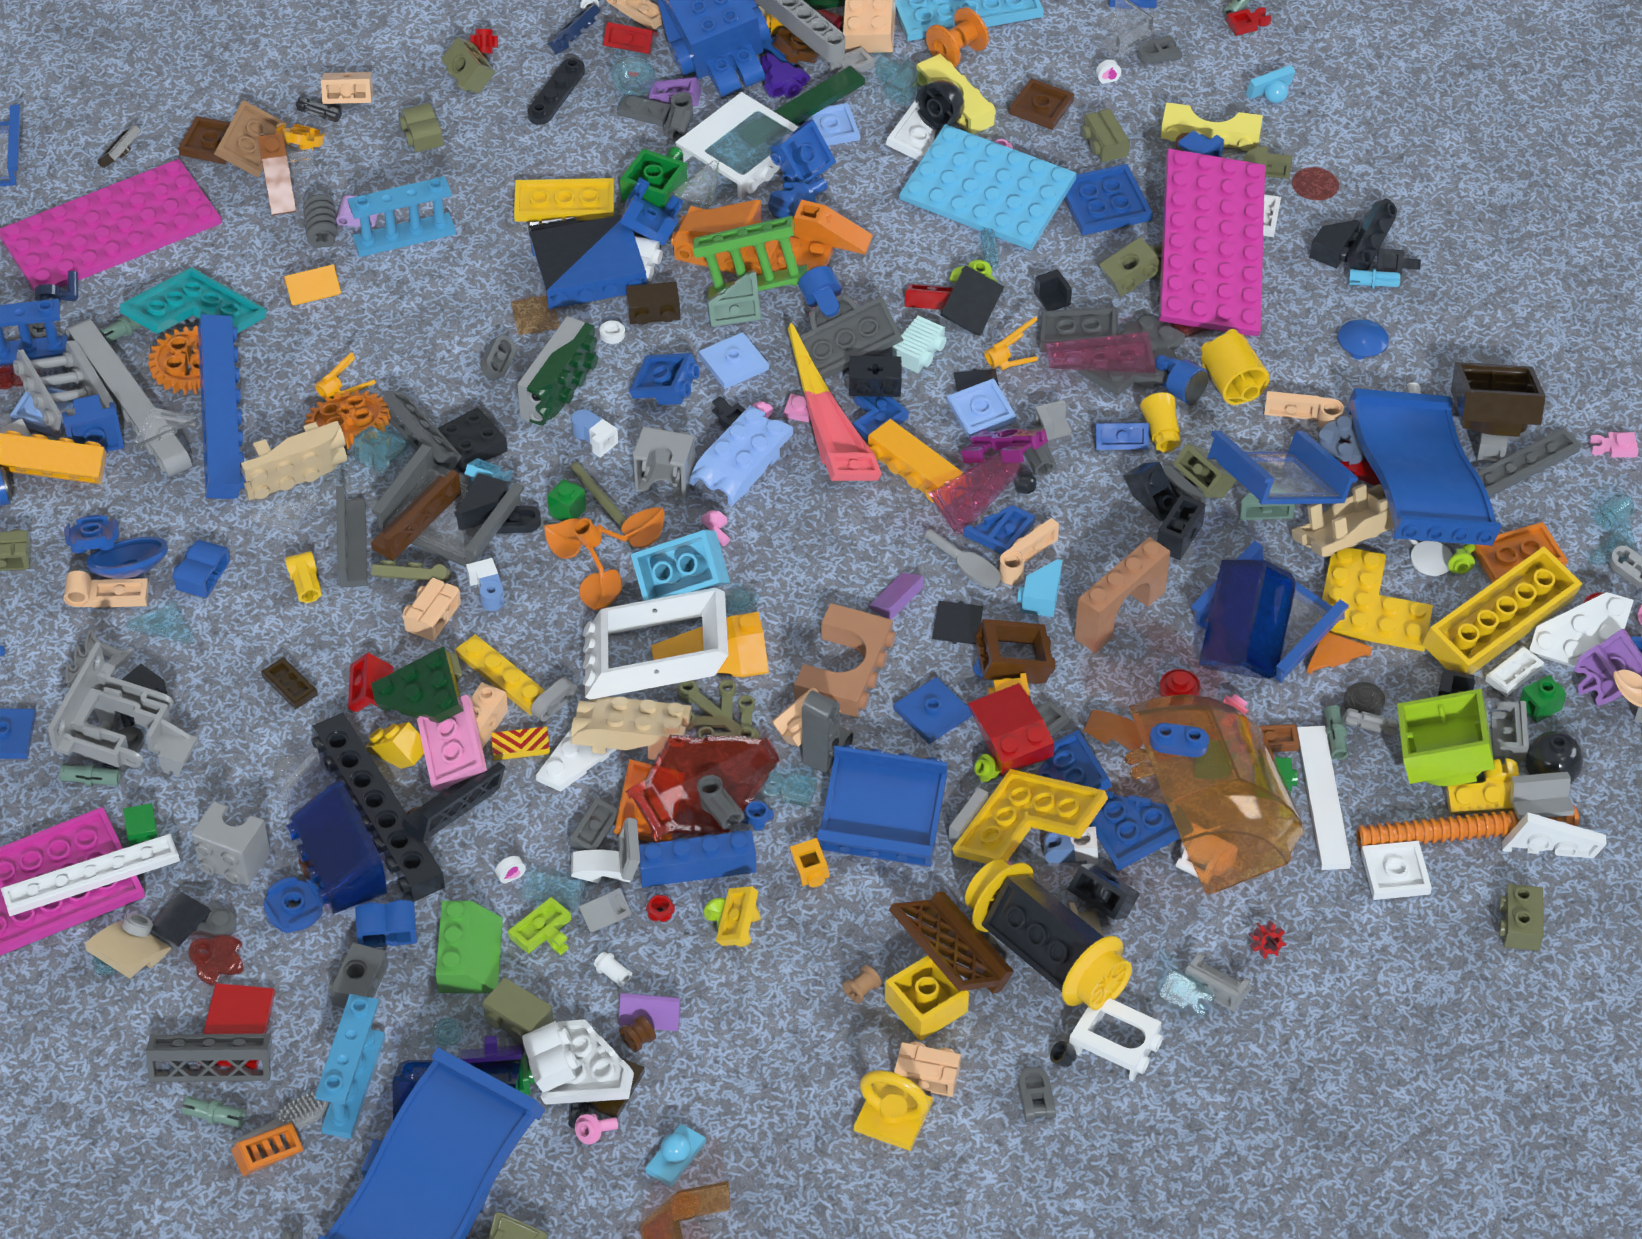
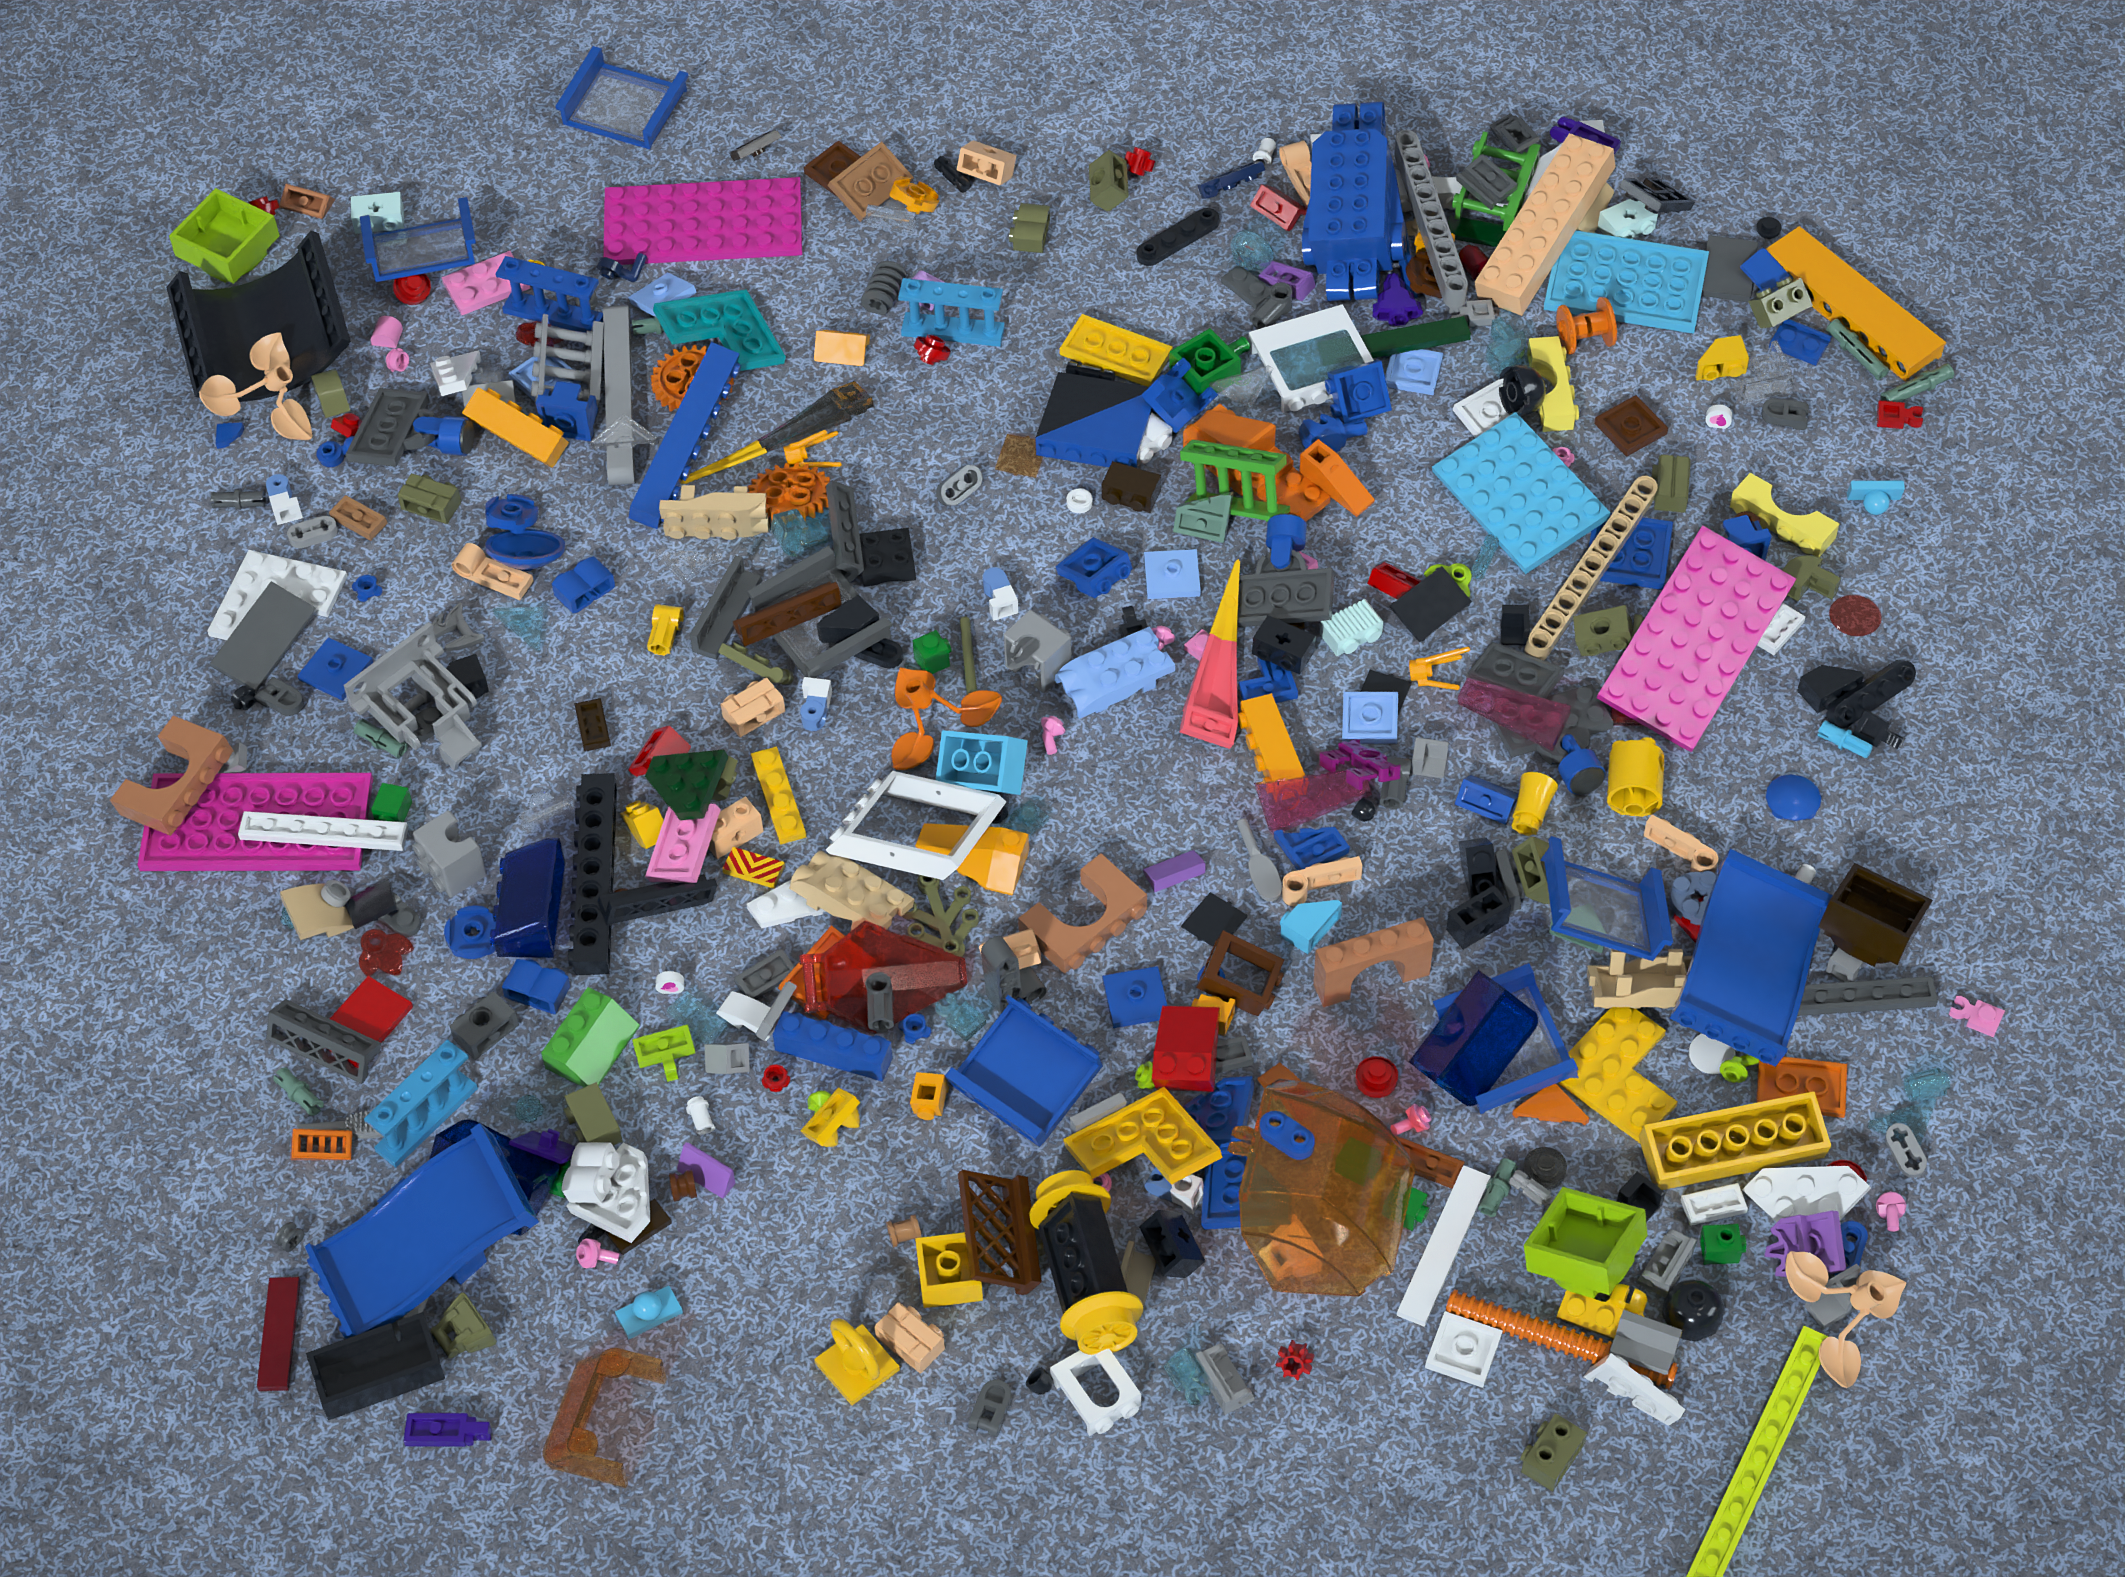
camera: 30 degrees right, 5 degrees up
(107, 299) = (661, 290): none -> light blue plate
(276, 173) = (869, 226): slope -> none
(335, 342) = (826, 413): none -> clear smoke plate
(398, 256) = (931, 349): none -> red plate
(486, 468) = (878, 595): medium azure plate -> none
(554, 699) = (805, 838): light grey beam -> none
(557, 371) = (997, 521): dark green piece -> none
(1084, 25) = (1723, 358): none -> yellow slope
(1089, 221) = (1595, 558): none -> tan beam

